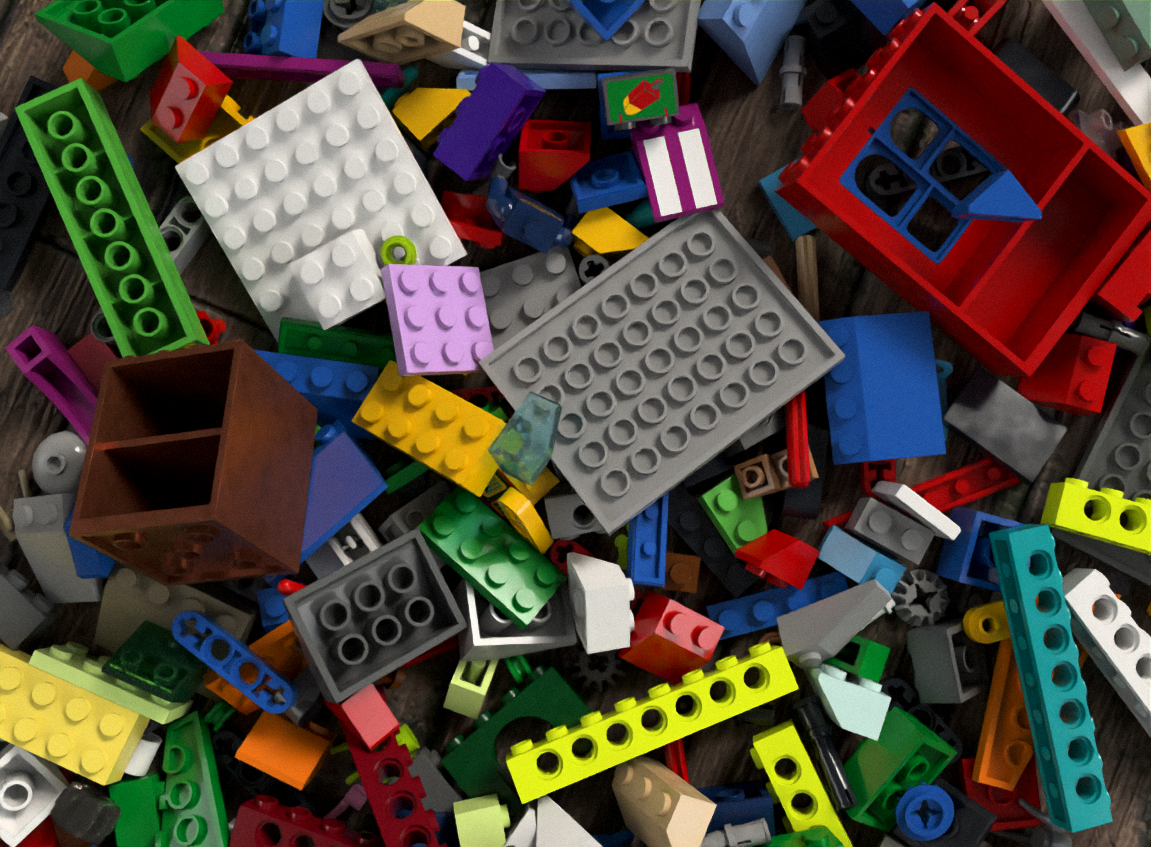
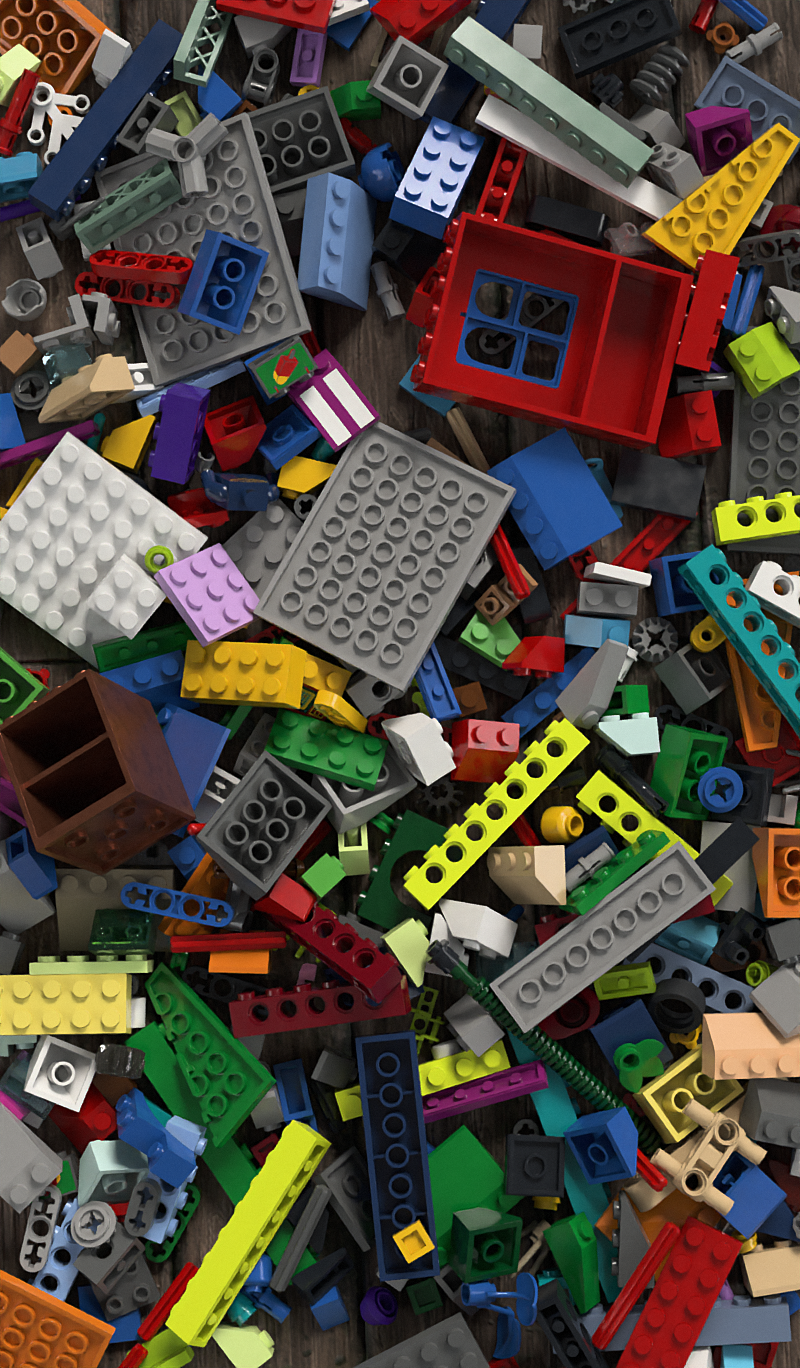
camera: 25 degrees left, 0 degrees up
(275, 728) = (228, 941): none -> red axle
(417, 702) = (322, 876): none -> bright green brick
(528, 439) = (315, 650): clear light blue slope -> none
(720, 764) = (561, 824): none -> yellow head
(998, 200) = (570, 331): blue slope -> none

